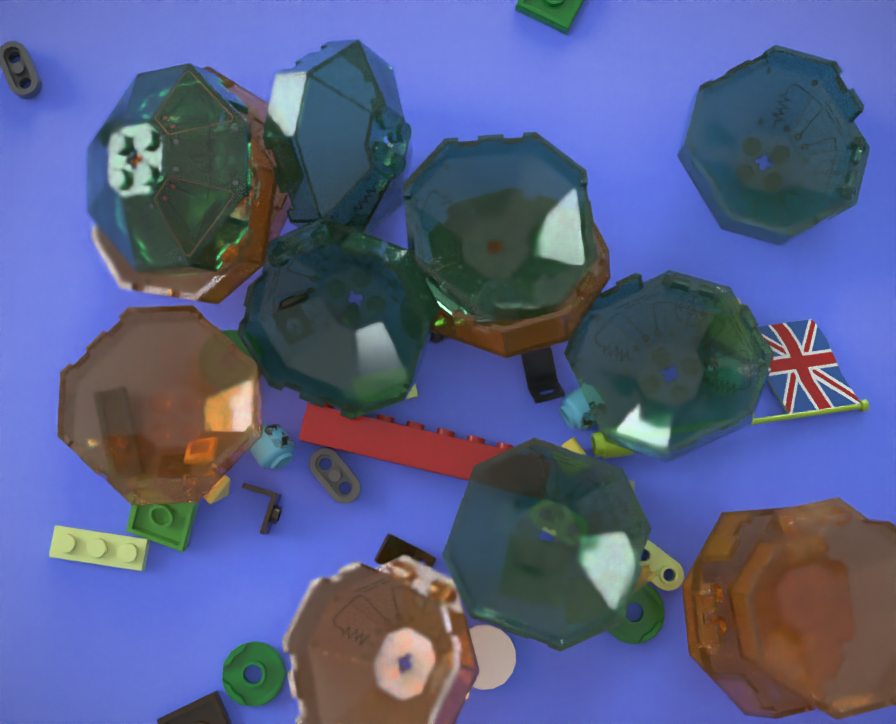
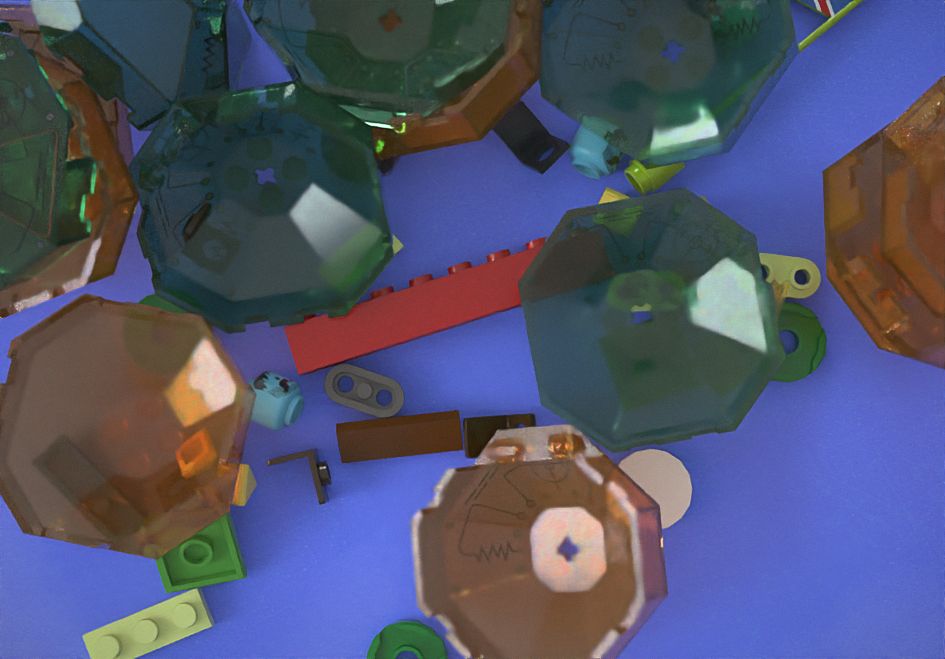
camera: 30 degrees left, 5 degrees up
(339, 520) = (399, 436): none -> reddish brown tile

